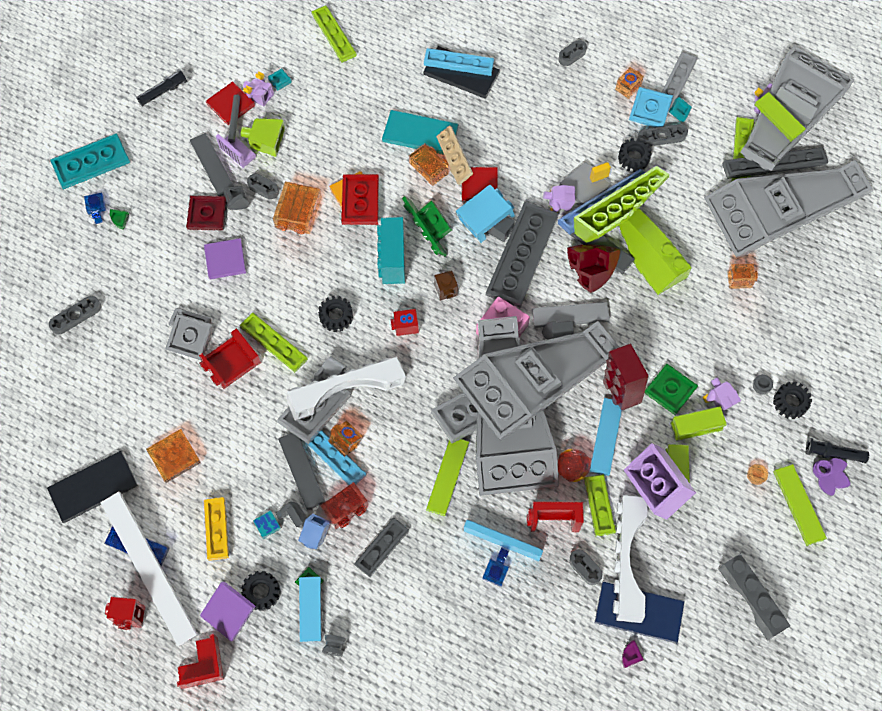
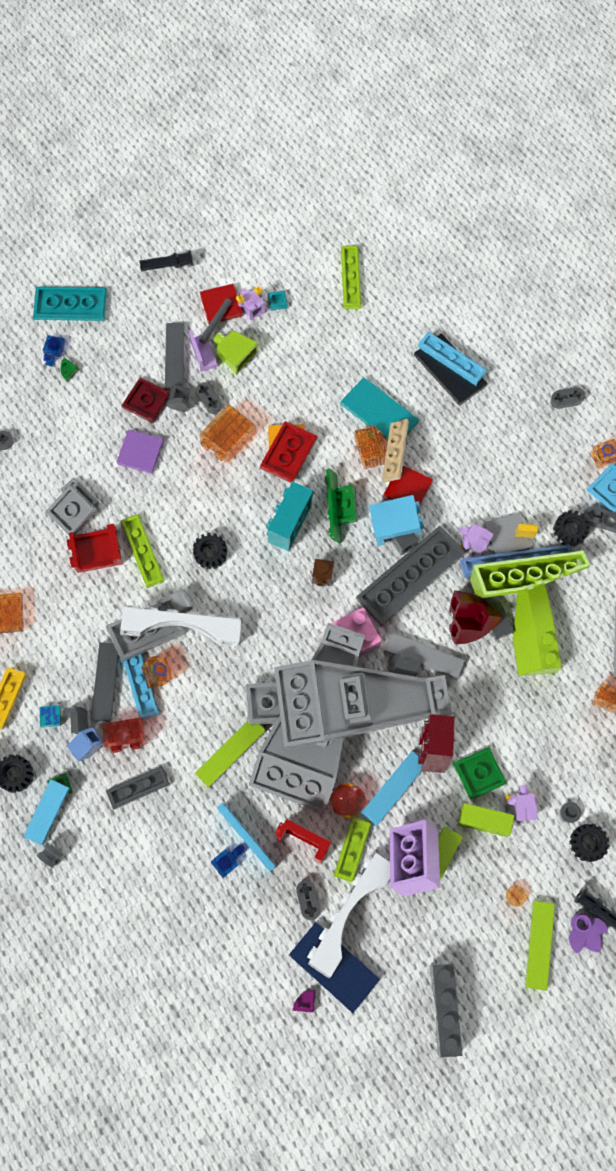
camera: 25 degrees right, 5 degrees up
(405, 322) = (267, 589): red brick -> none

